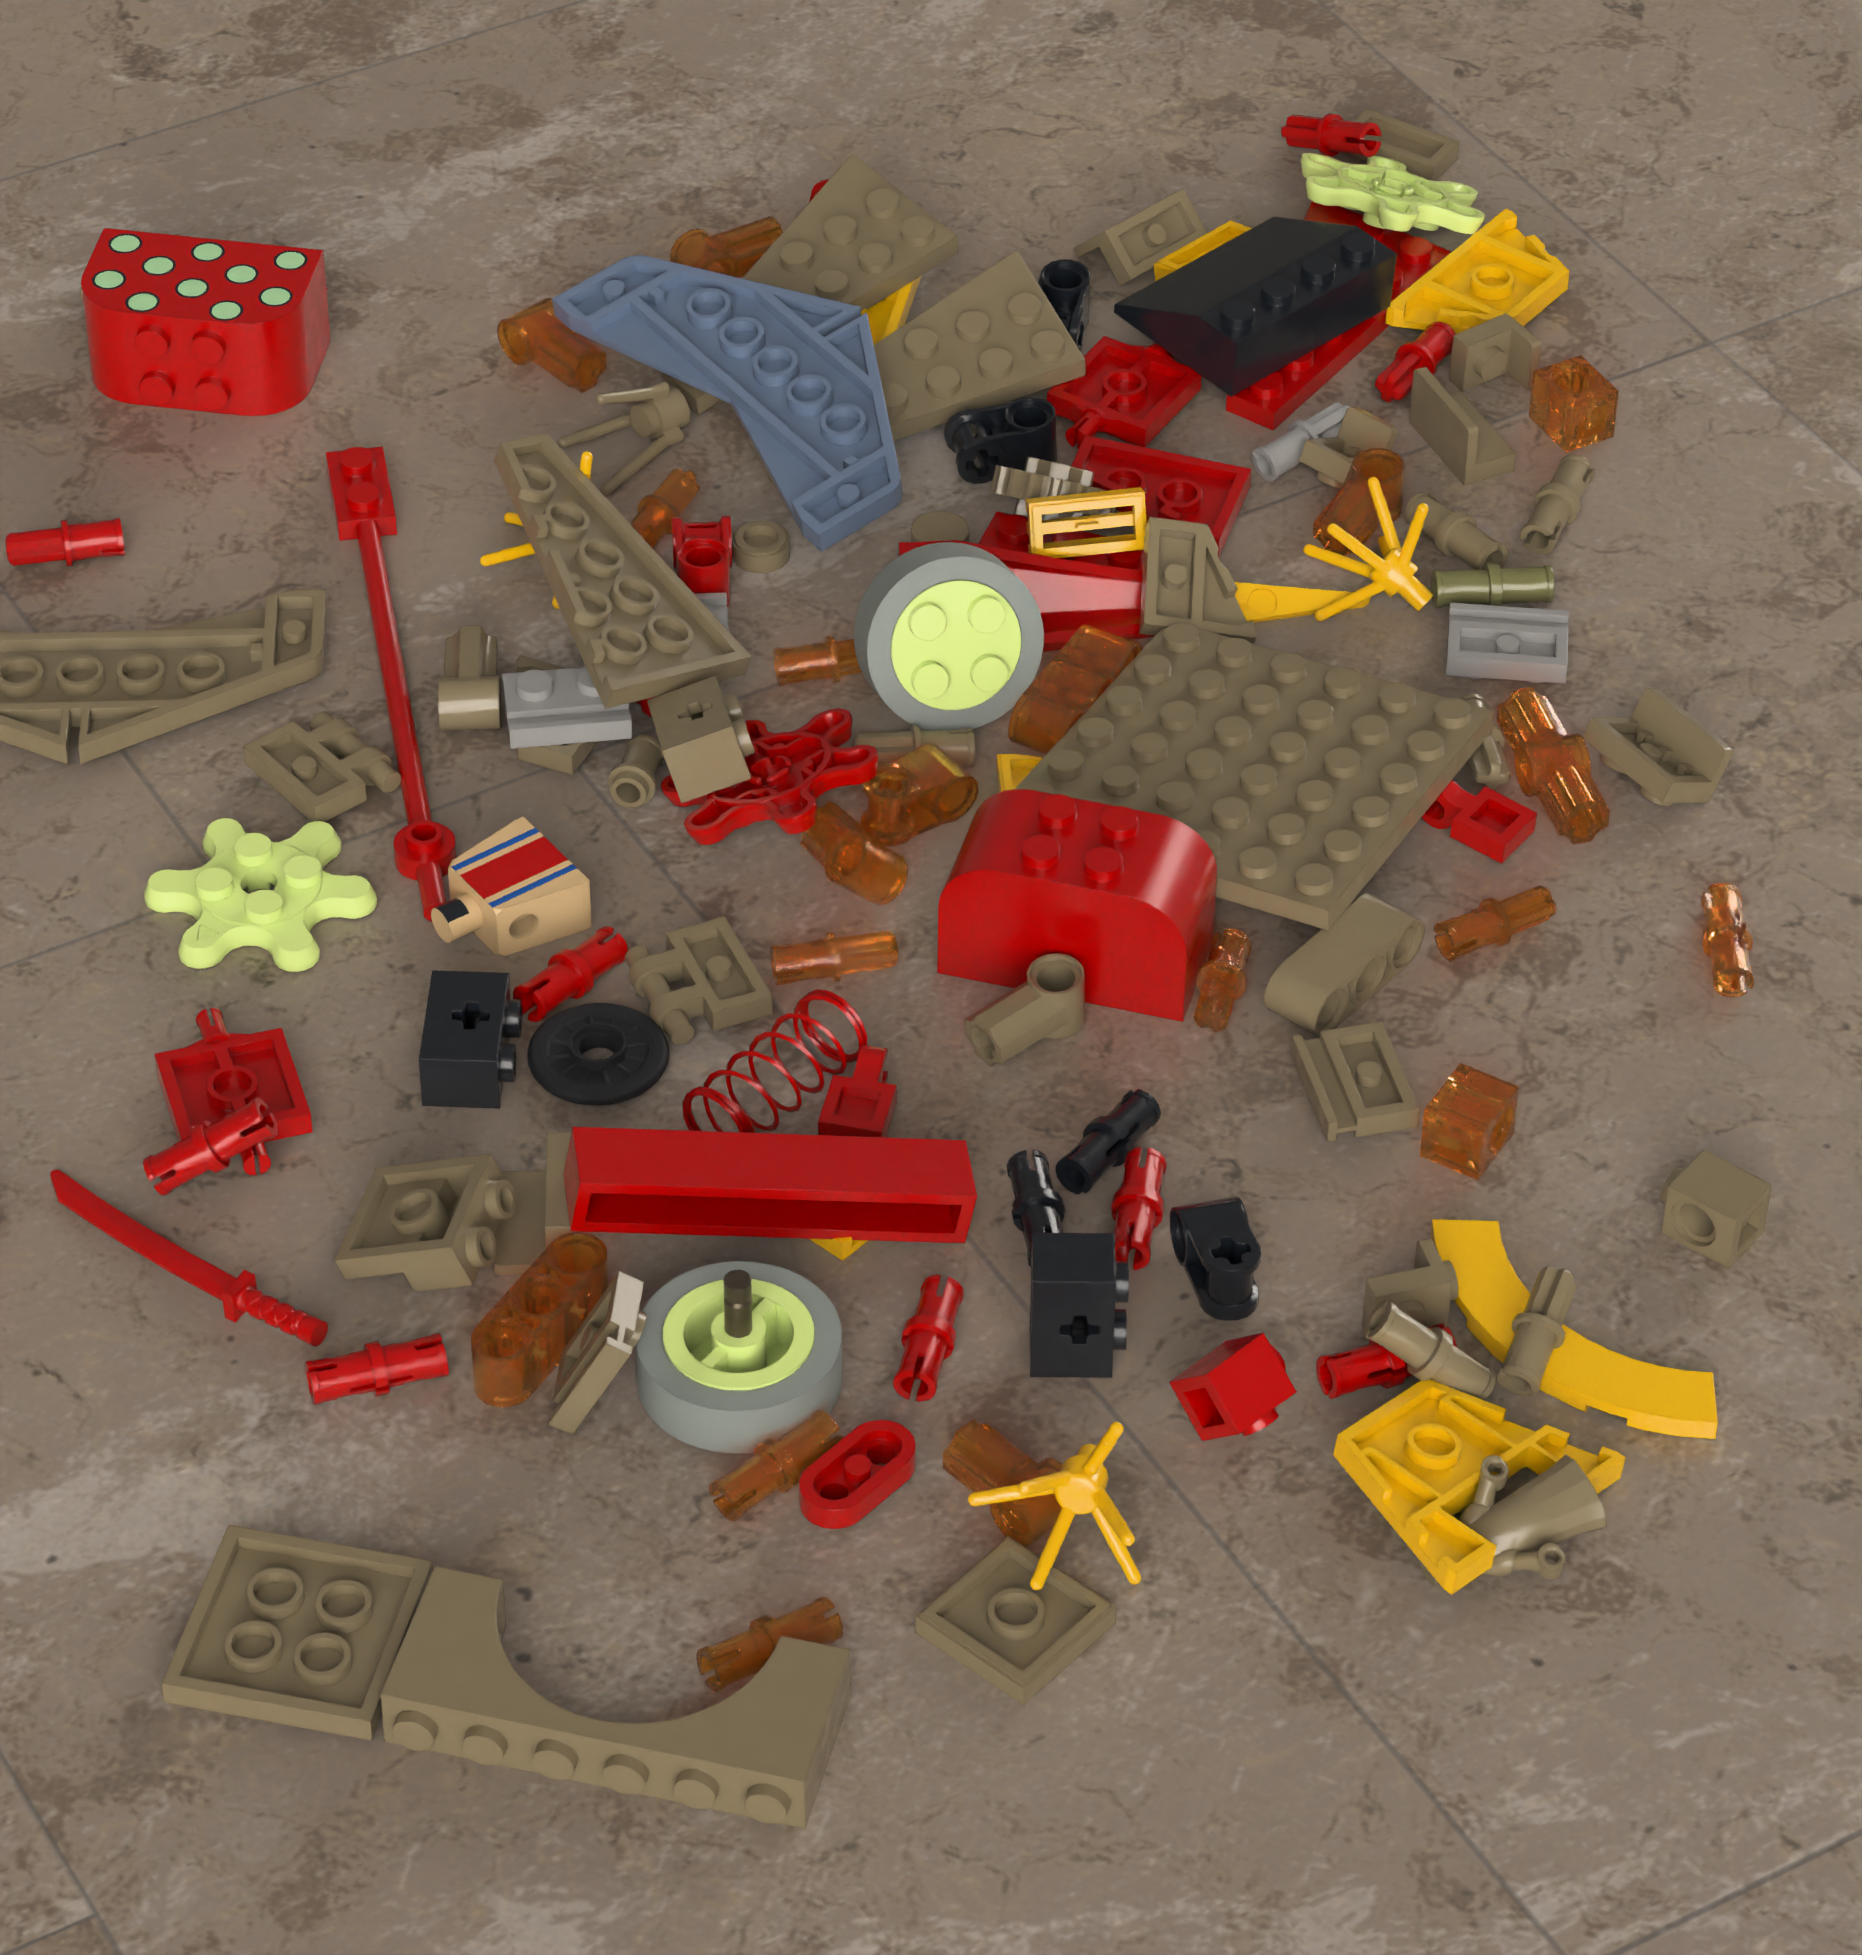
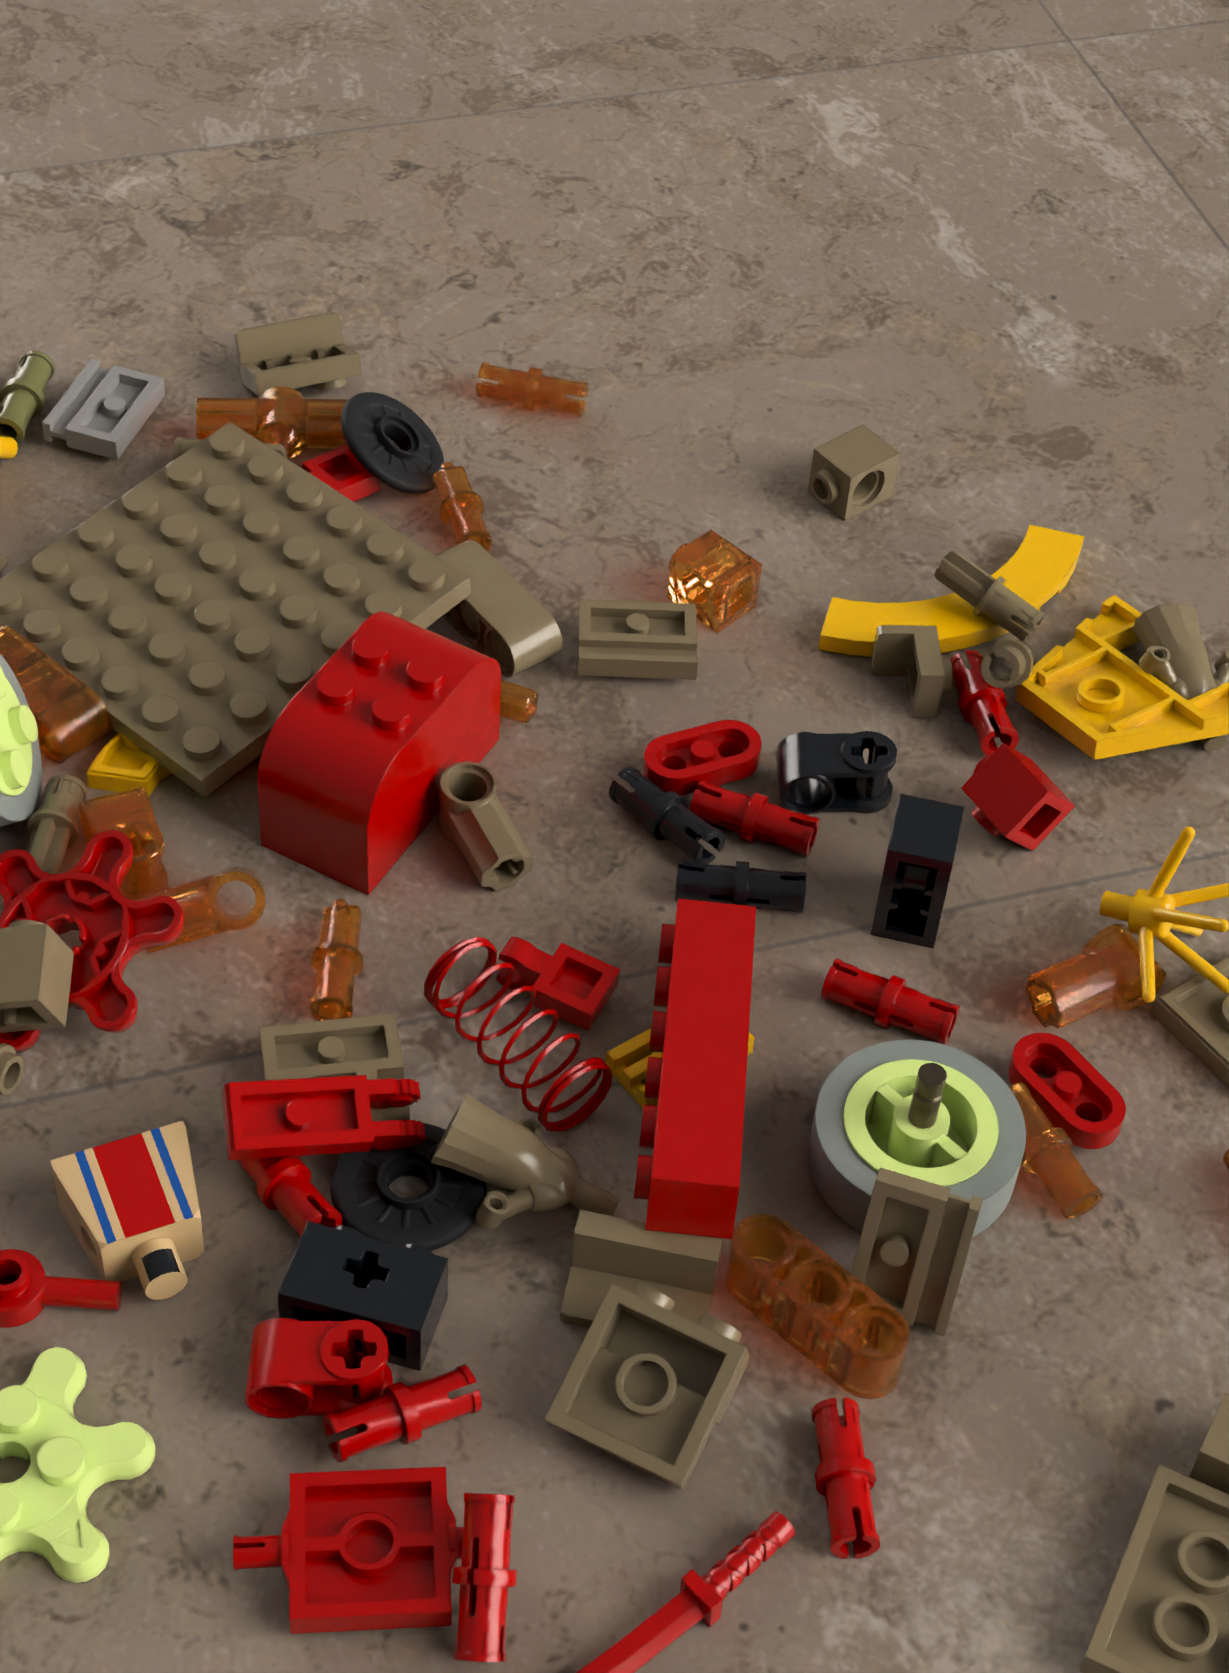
camera: 80 degrees left, 5 degrees up
(363, 1088) = (402, 1413): none -> red pin
(387, 1031) = (312, 1366): none -> red piece
(619, 954) = (317, 1116): none -> red hinge
(632, 1081) = (517, 1161): none -> dark tan piece
(1202, 1153) = (709, 752): none -> red plate
(1575, 811) = (368, 422): none -> black wheel

